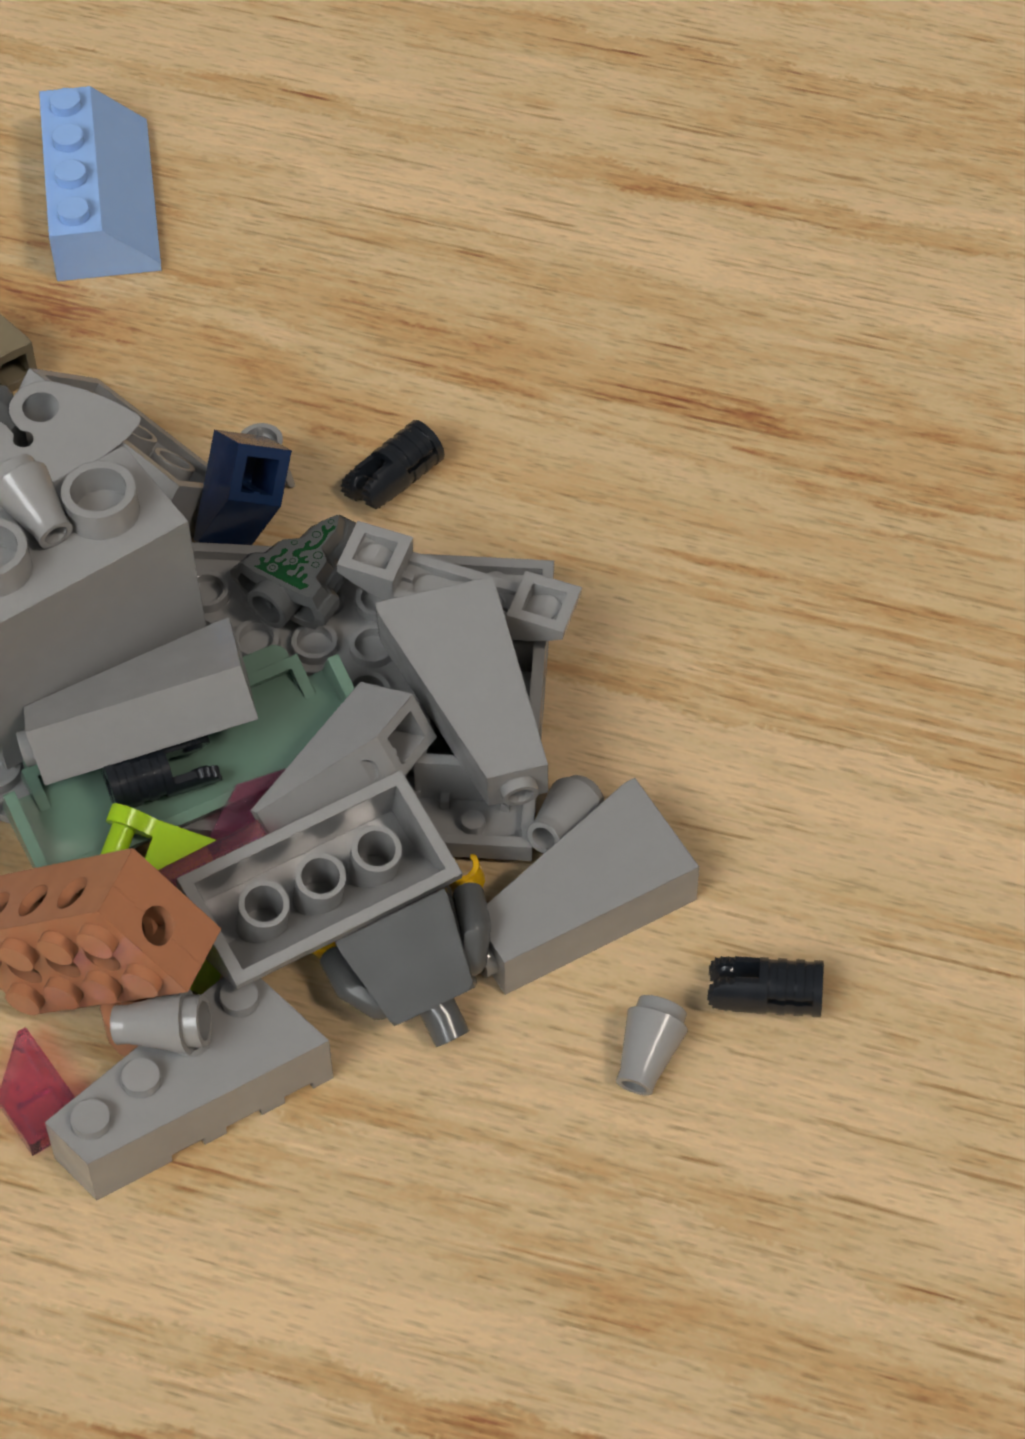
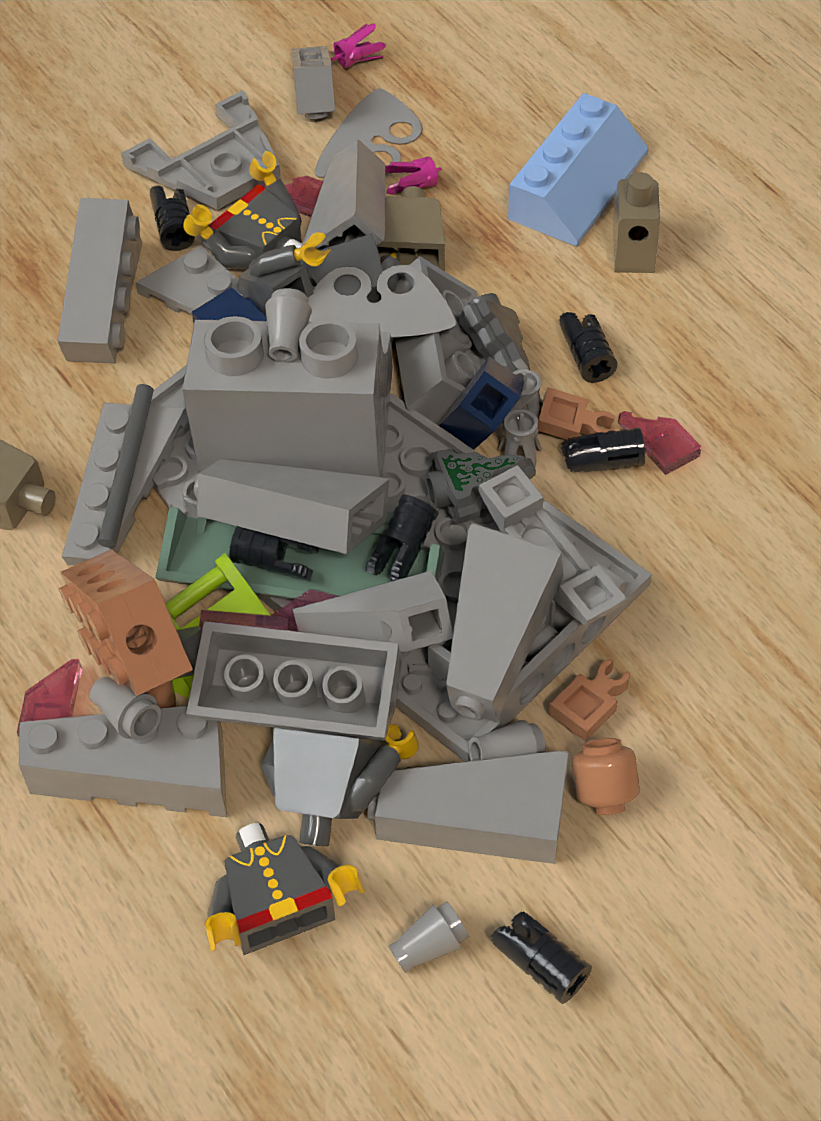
camera: 40 degrees right, 0 degrees up
(174, 410) = (495, 331): none -> dark grey rock
(210, 197) = (636, 205): none -> dark tan torso
(278, 368) = (588, 347): none -> black hinge
(289, 666) = (405, 532): none -> black hinge
(298, 498) = (520, 429): none -> light grey piece
(323, 455) = (567, 416): none -> nougat plate
(451, 419) = (664, 441): none -> clear pink tile
(464, 1100) = (275, 891): none -> dark grey torso
(599, 724) = (587, 703): none -> nougat plate
(684, 779) = (605, 775): none -> nougat head

